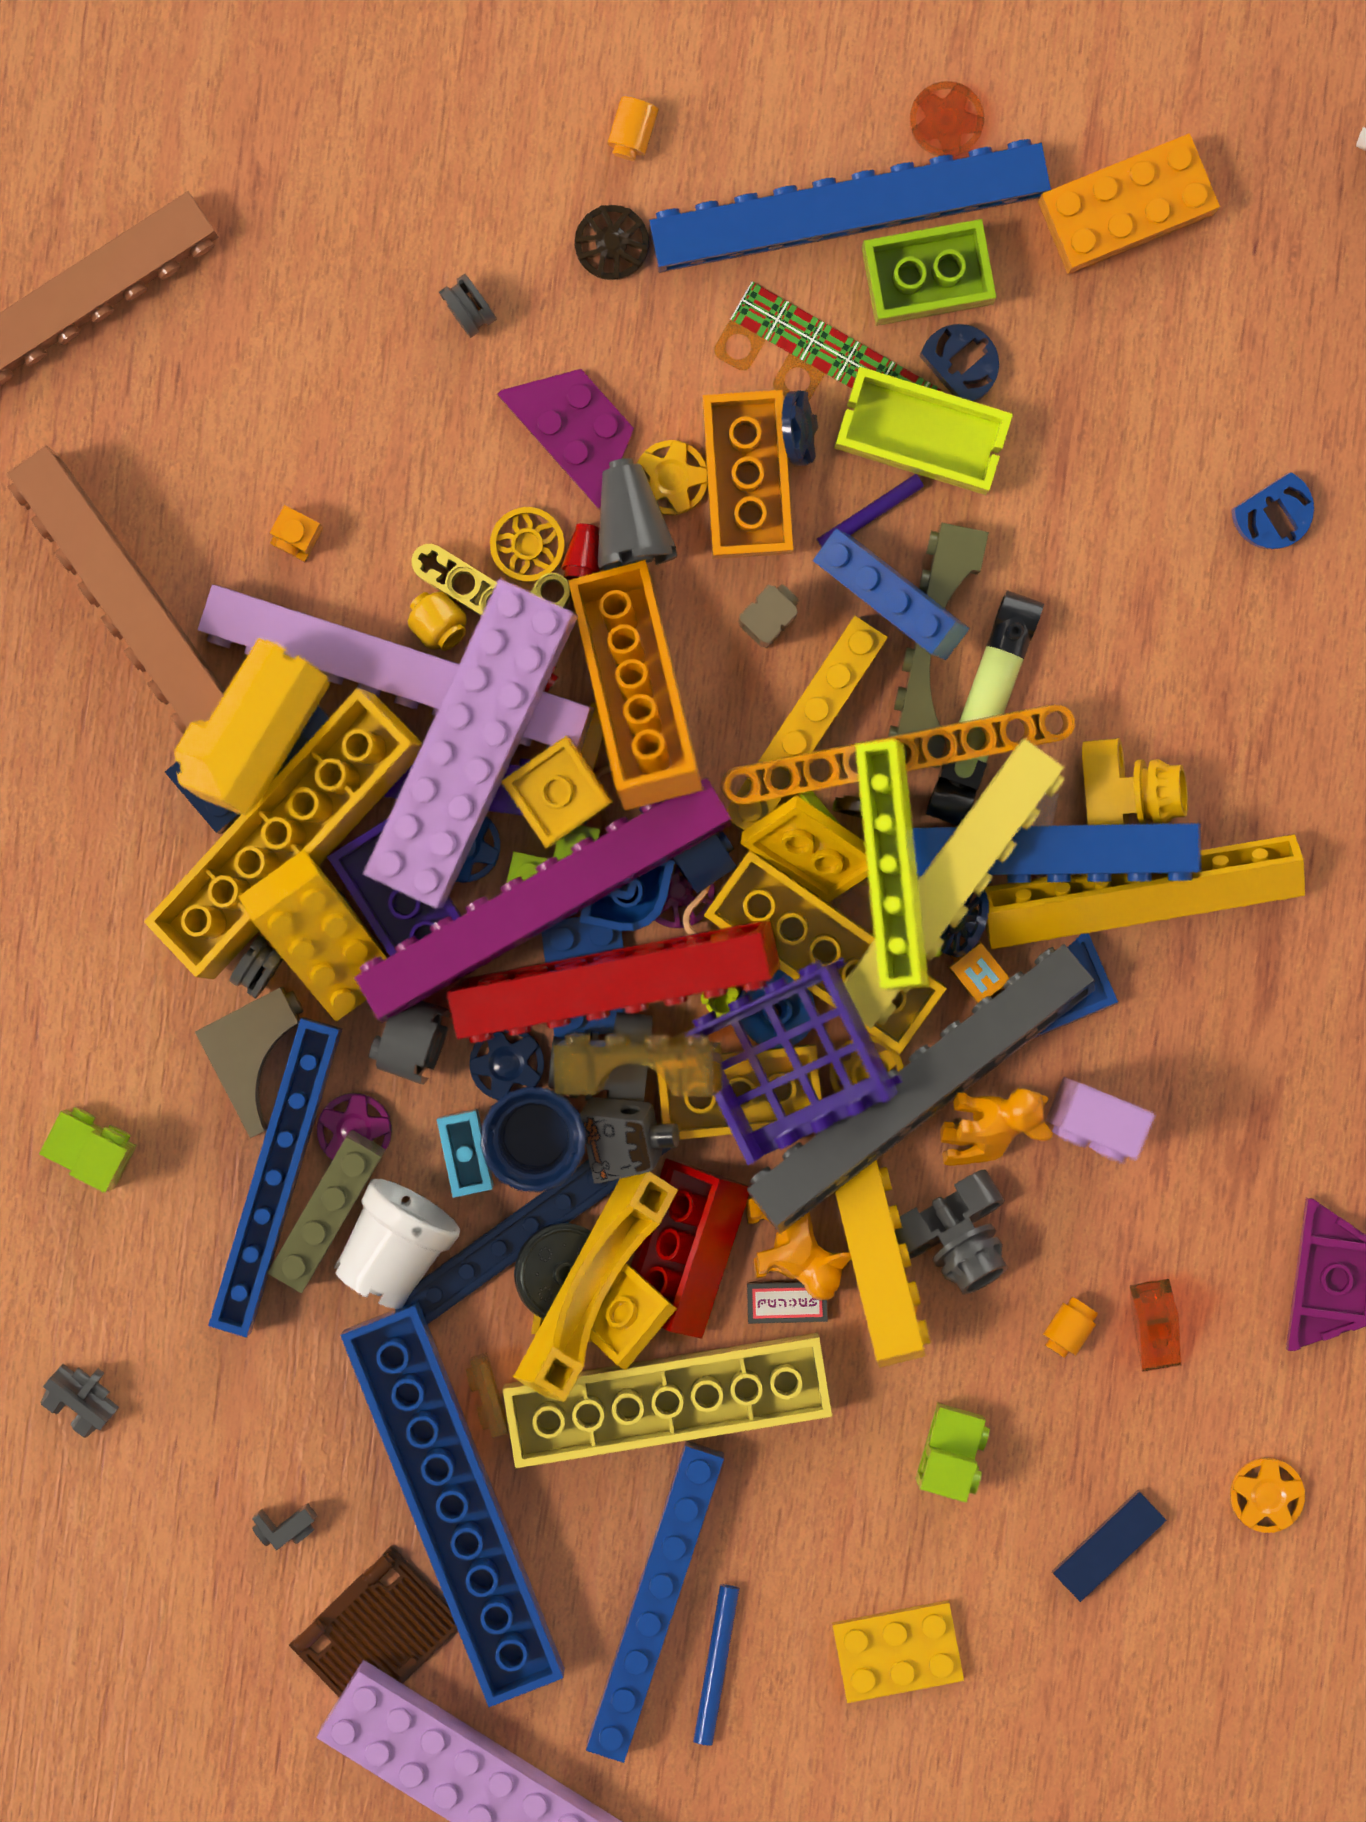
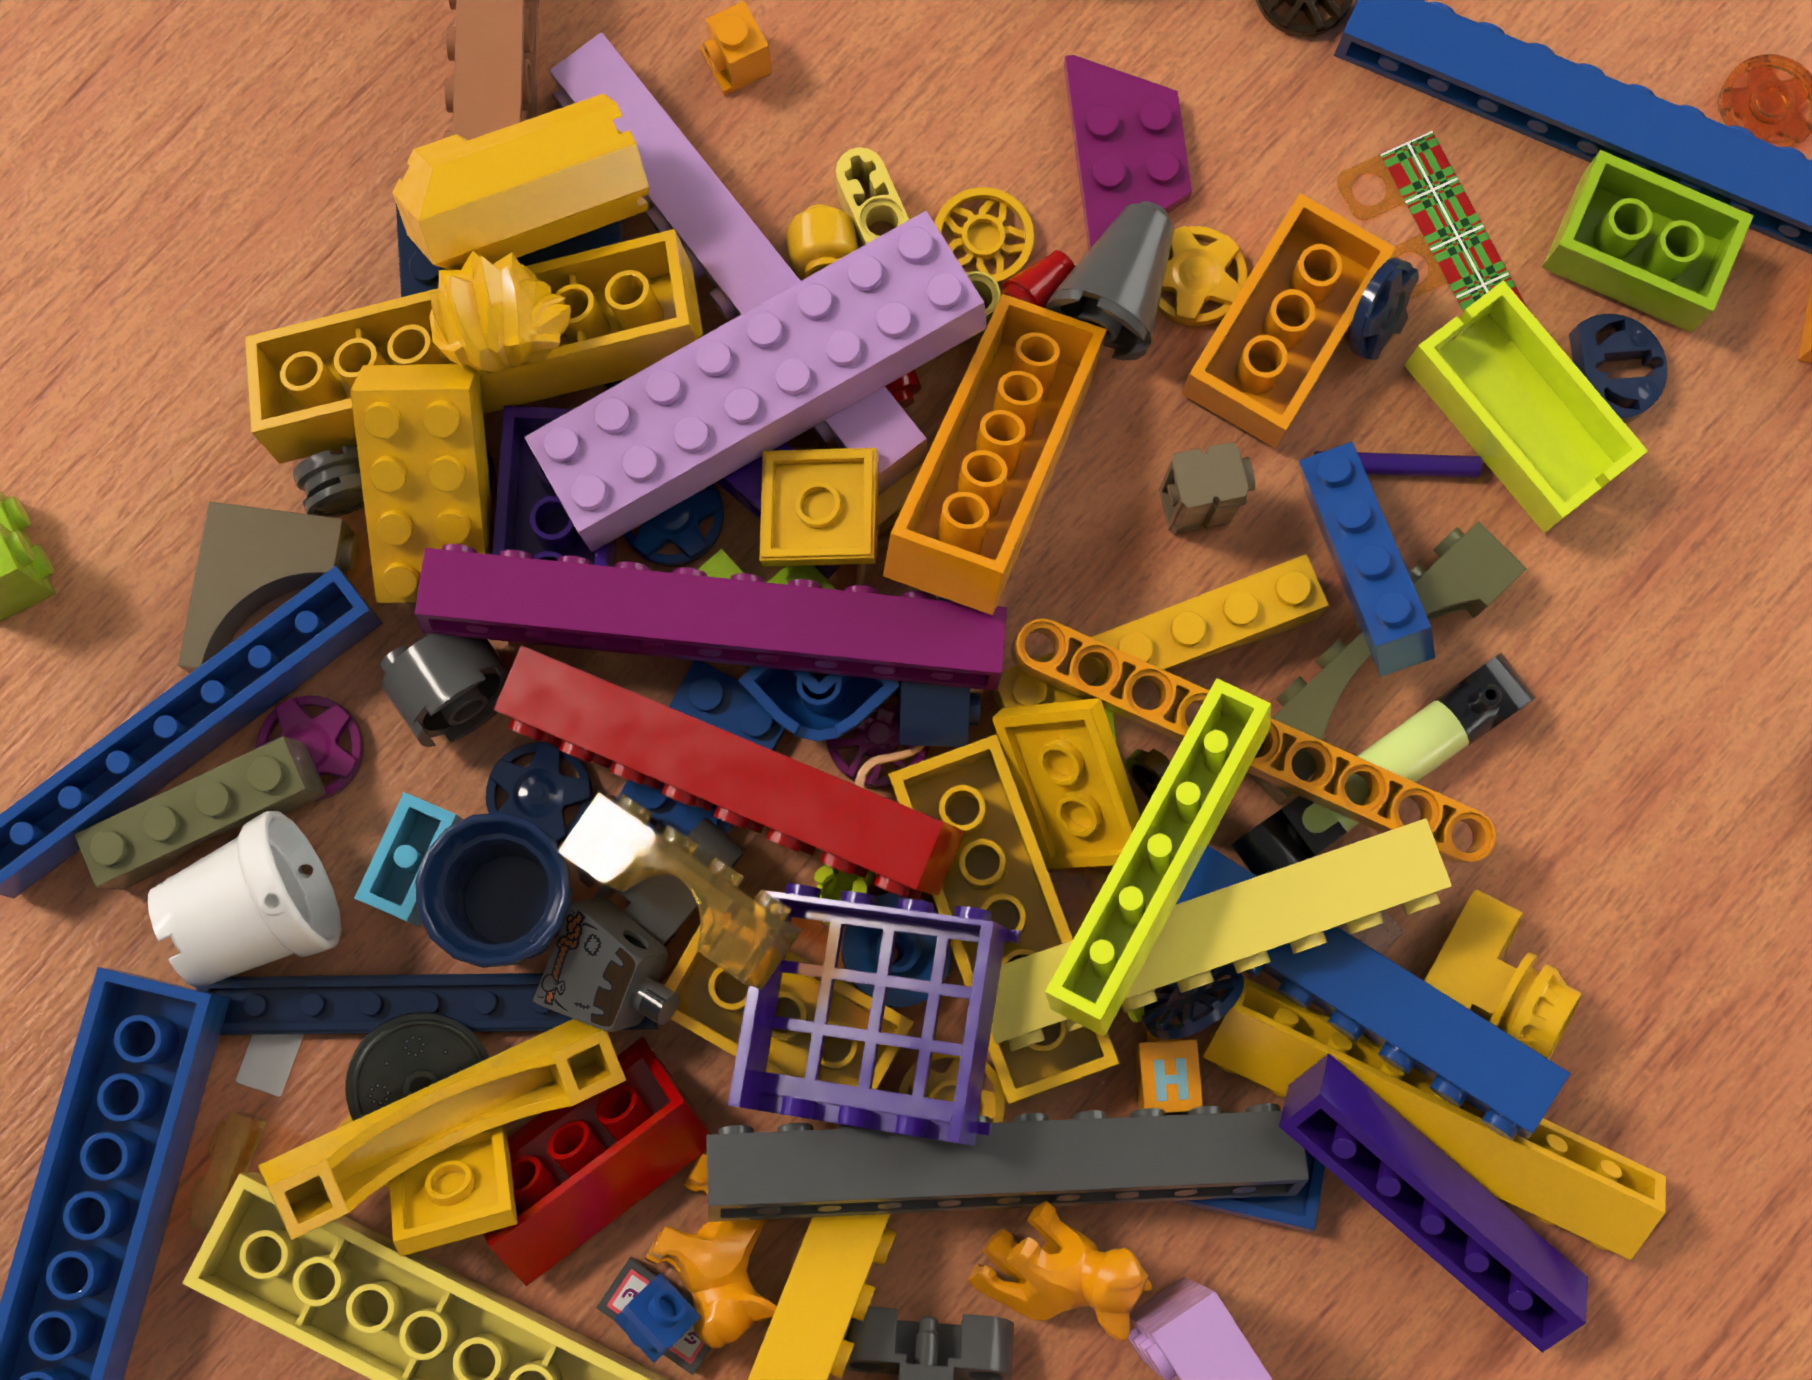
camera: 30 degrees right, 10 degrees down
(298, 816) = (496, 315): none -> yellow hair
(464, 1320) = (269, 1062): none -> white sticker
(787, 1305) = (657, 1318): none -> blue bracket
(1173, 942) = (1435, 1203): none -> dark purple brick

